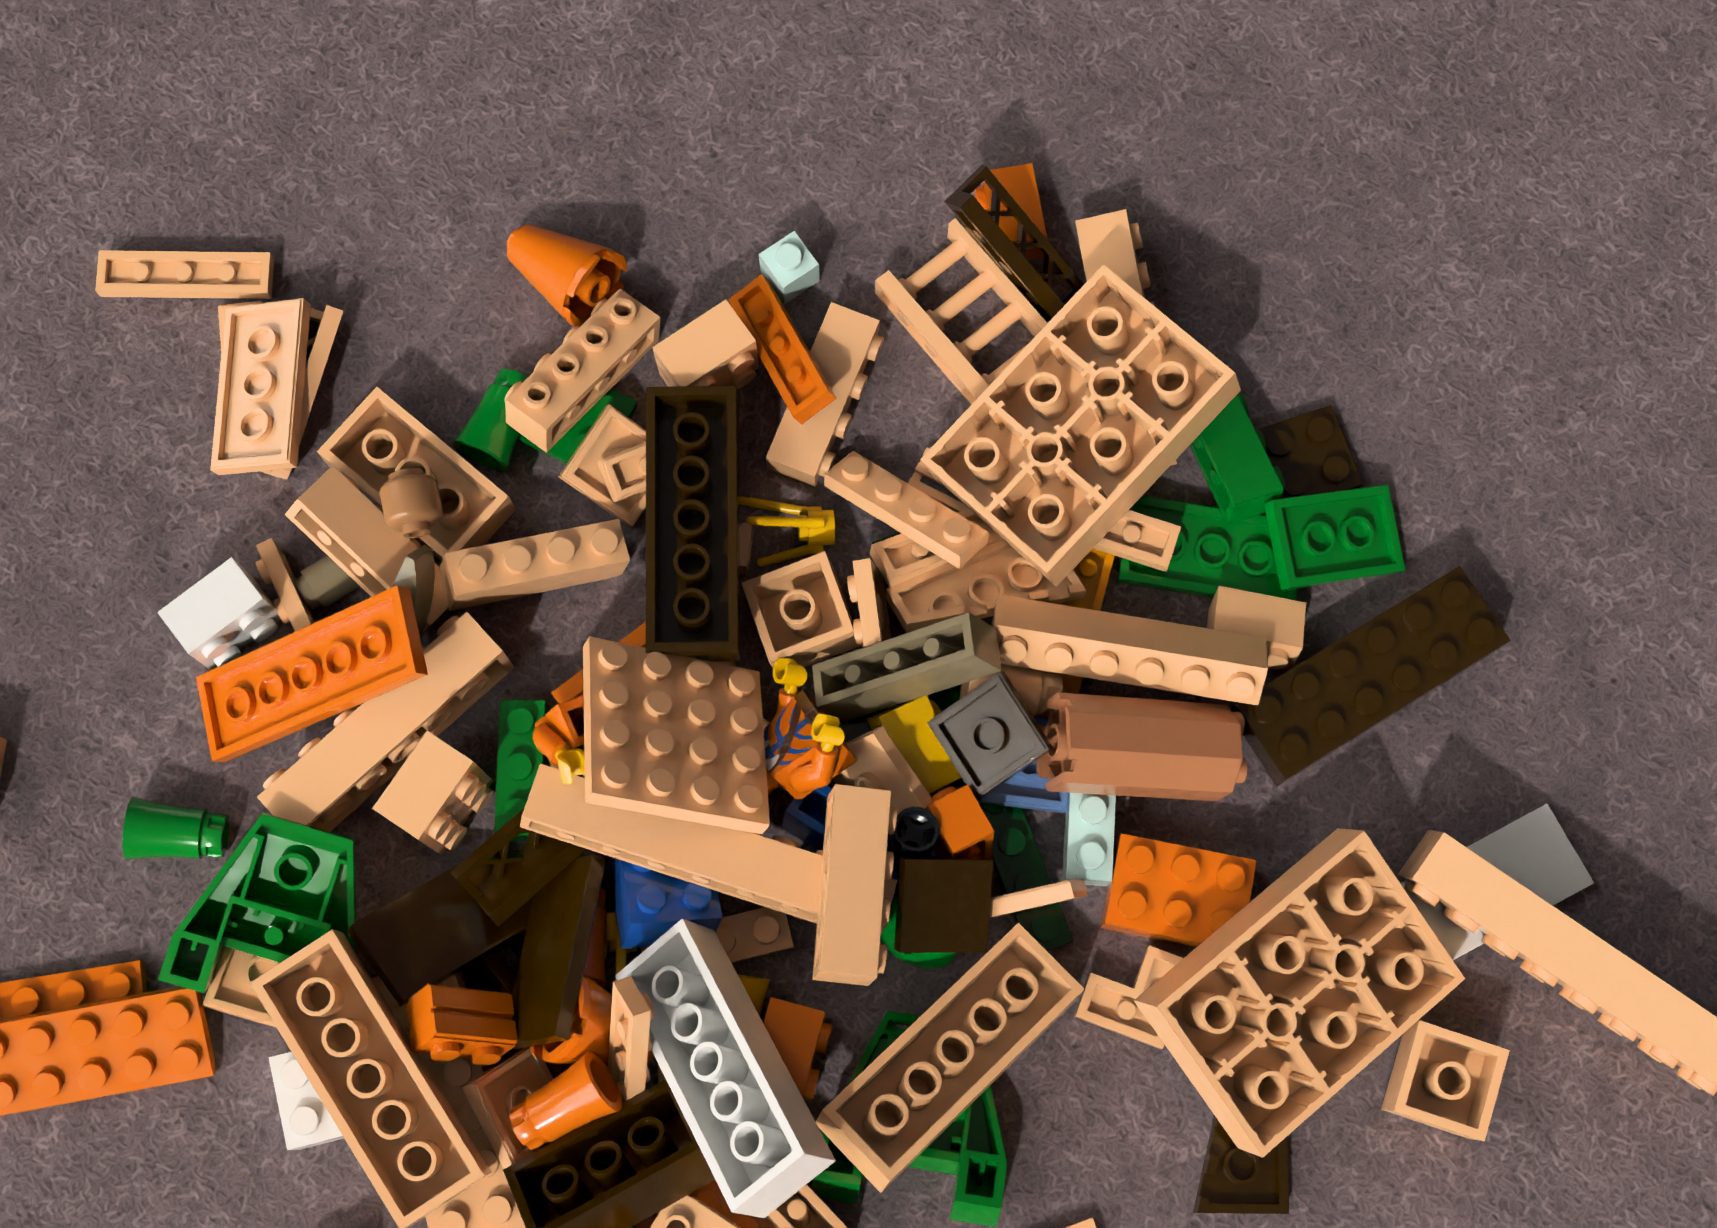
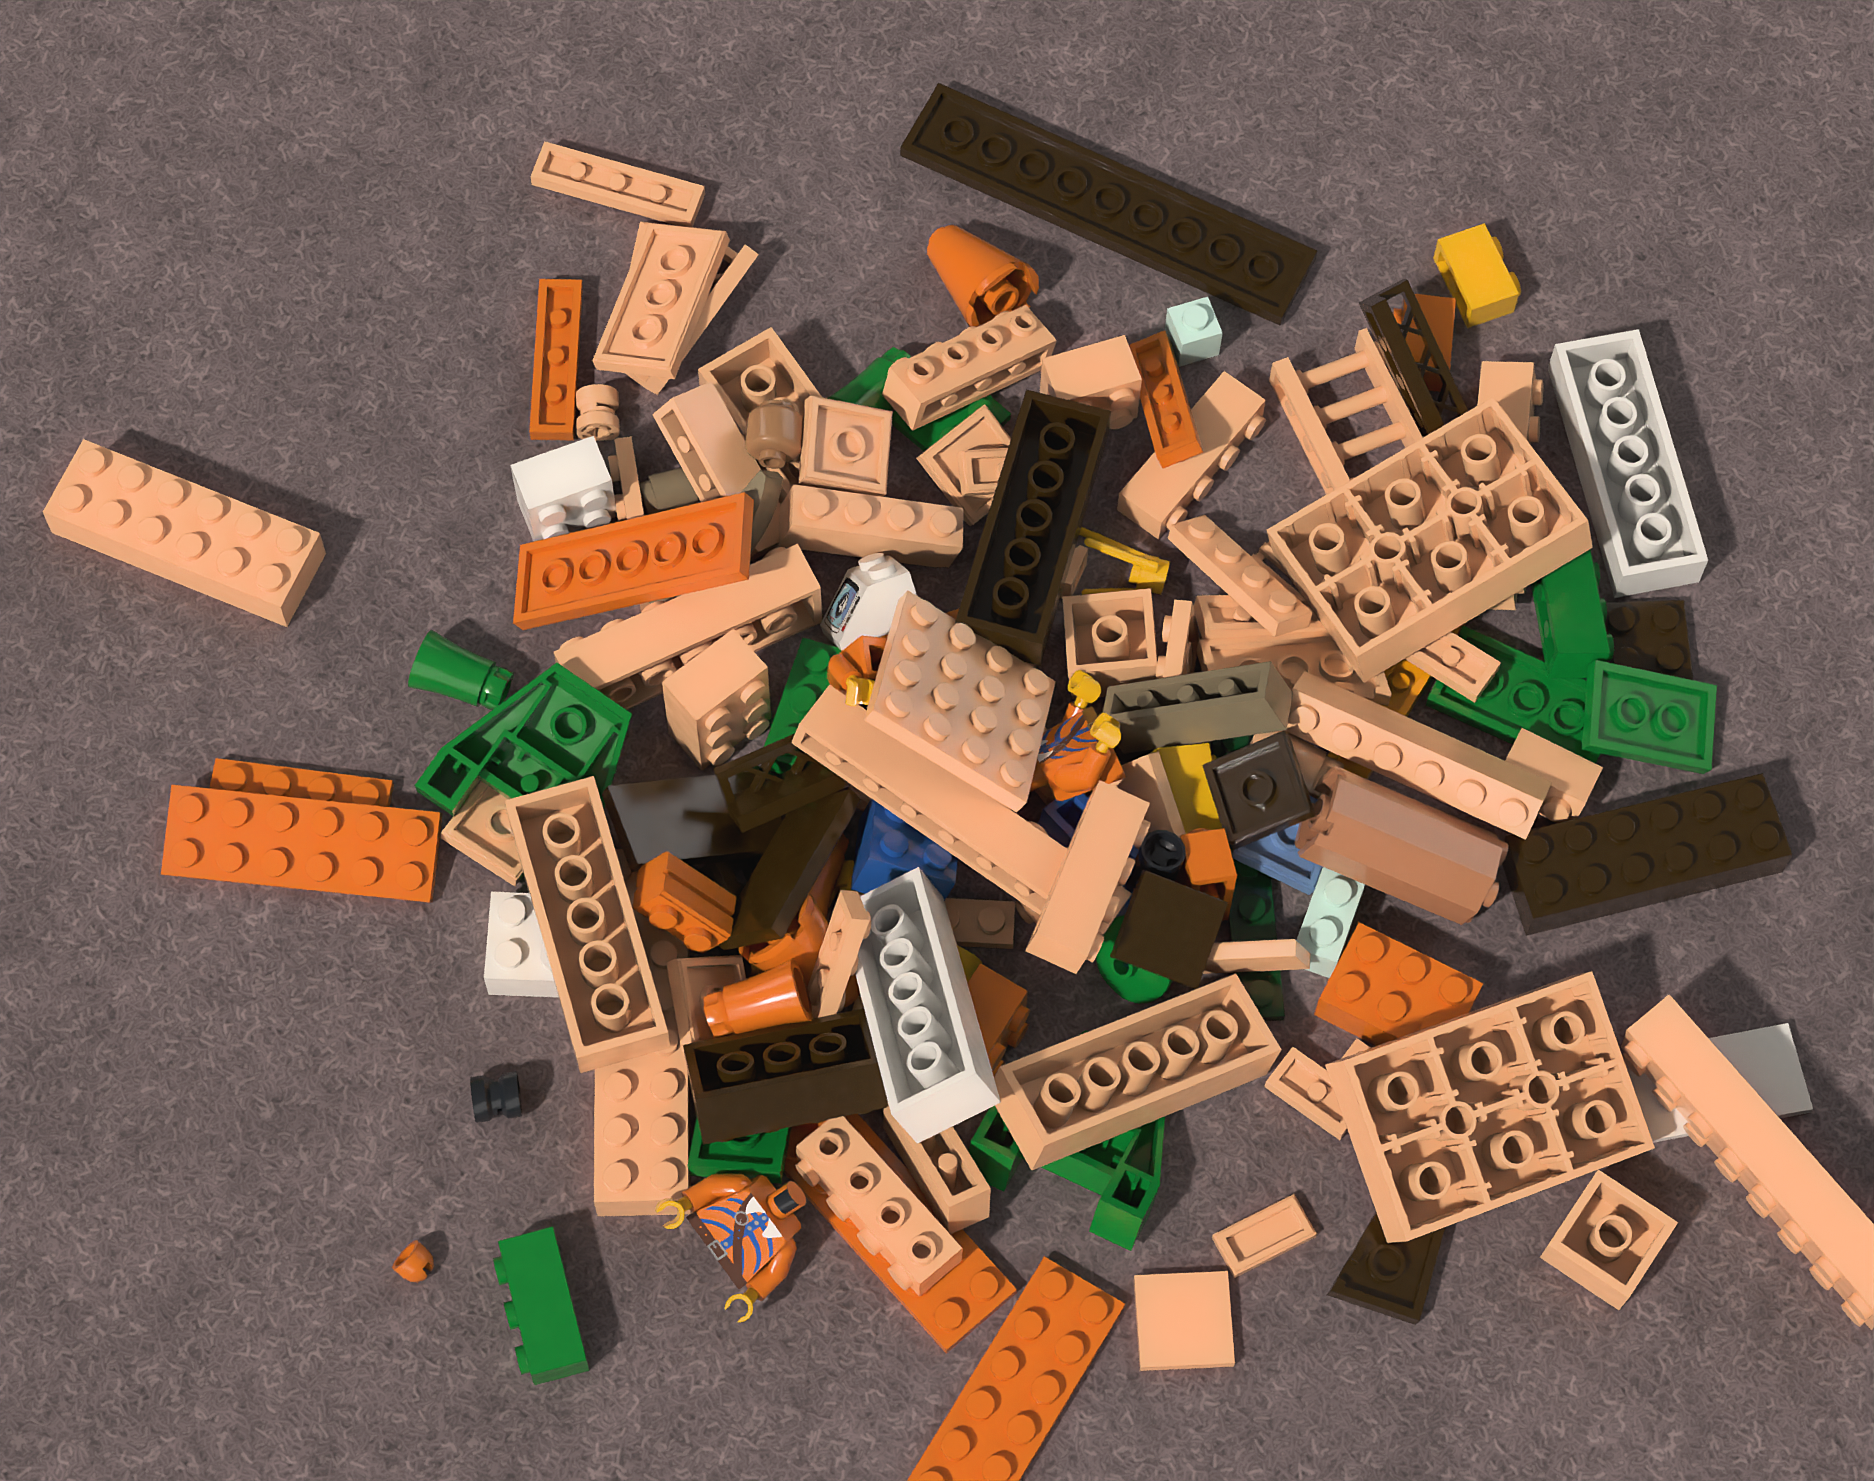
camera: 15 degrees right, 10 degrees down
(176, 473) = (556, 359): none -> orange plate
(232, 518) = (597, 412): none -> light nougat wheel
(485, 494) = (845, 446): none -> light nougat plate
(553, 644) = (866, 600): none -> white slope
(669, 157) = (1109, 203): none -> dark brown plate
(1044, 130) = (1477, 275): none -> yellow brick
(1116, 1168) = (1264, 1236): none -> light nougat tile
(1241, 283) = (1627, 463): none -> white brick

